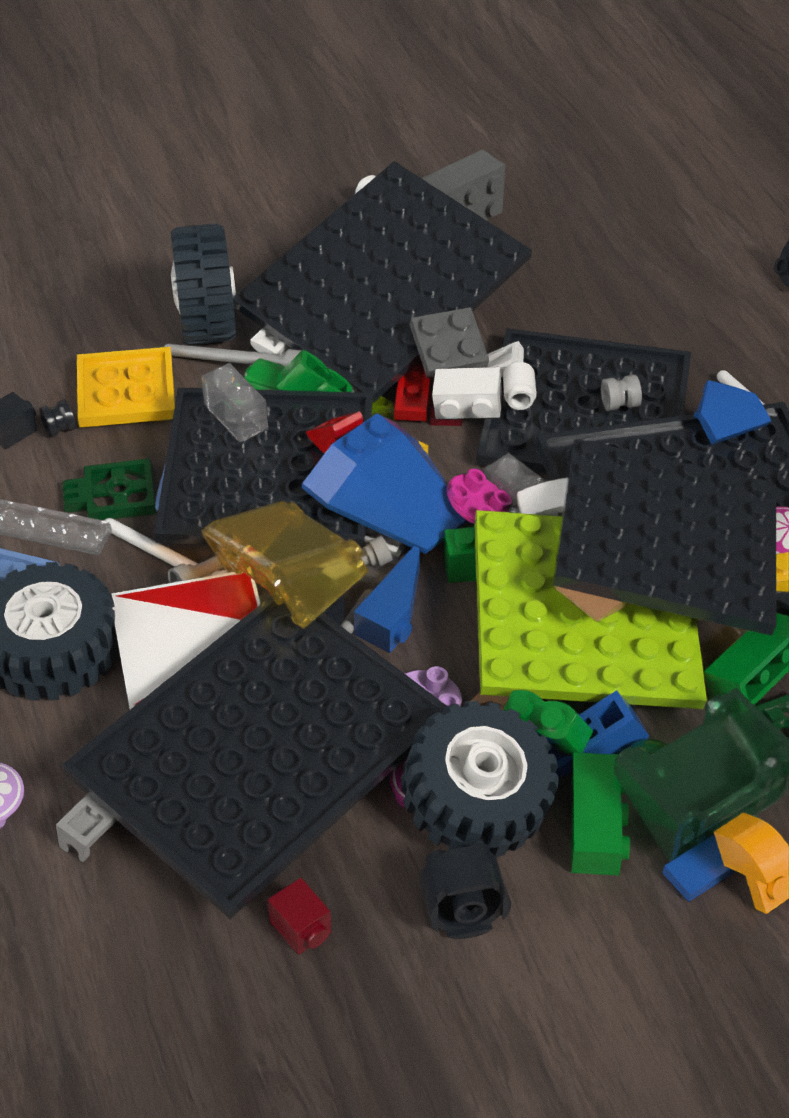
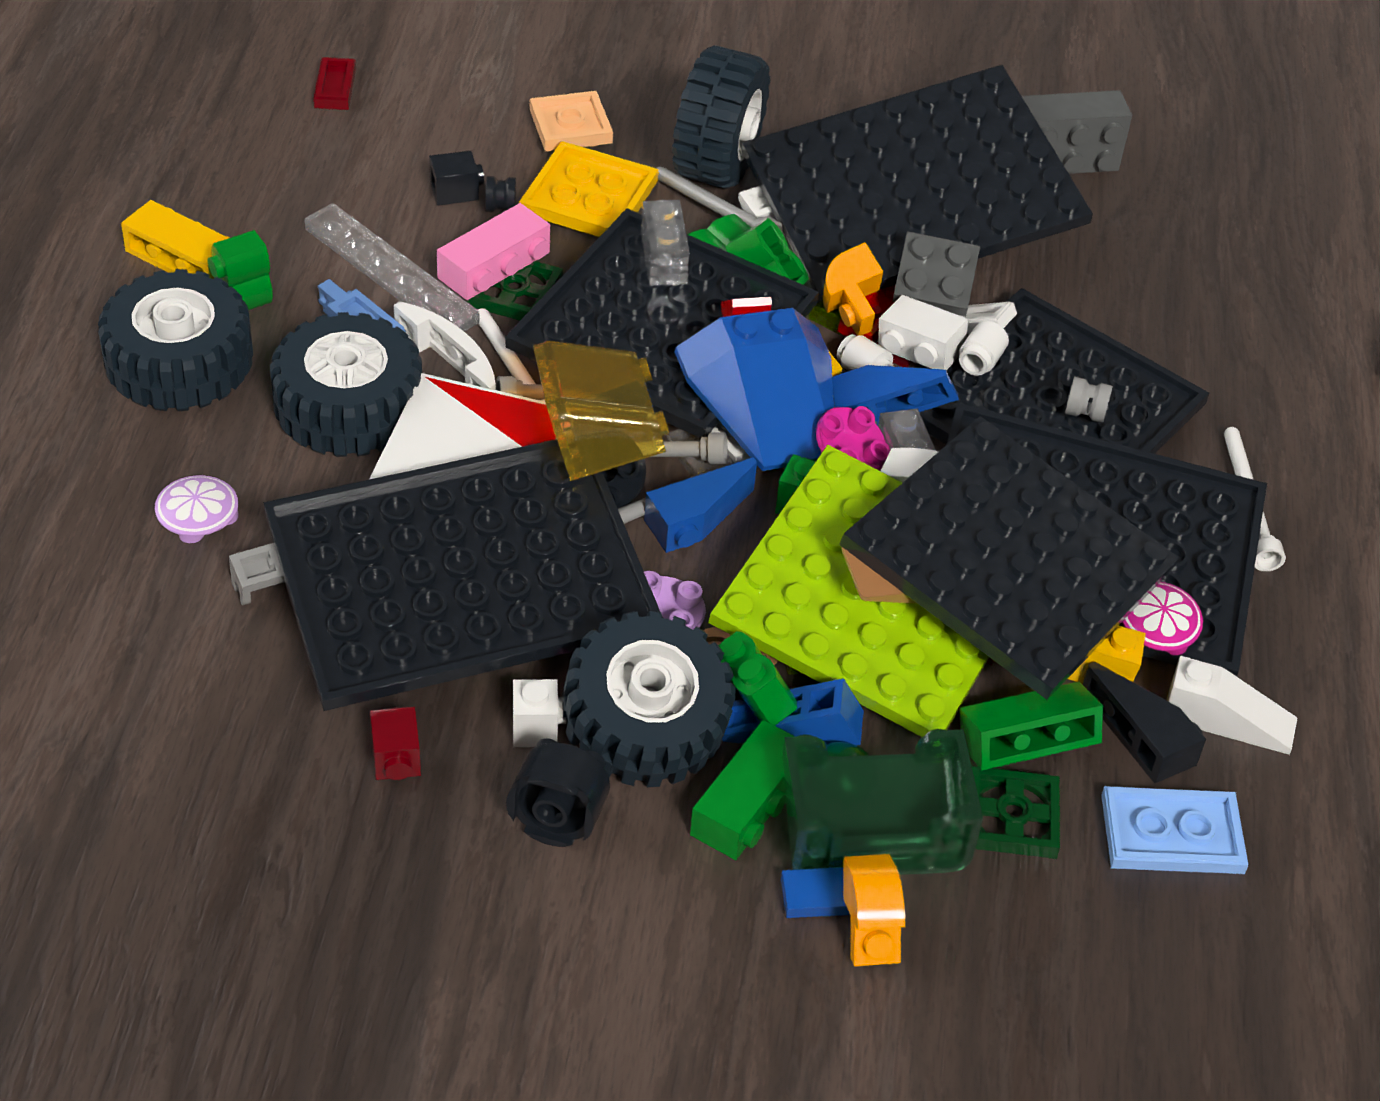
camera: 25 degrees right, 0 degrees up
(70, 334) = (571, 119): none -> light nougat plate
(90, 467) = (493, 251): none -> bright pink brick
(107, 560) = (448, 340): none -> white slope
(391, 380) = (847, 282): none -> light orange brick
(393, 834) = (536, 711): none -> white brick
(434, 431) = (861, 351): none -> white brick
(479, 446) = (893, 389): none -> blue slope
(729, 412) = (1188, 466): blue slope -> none

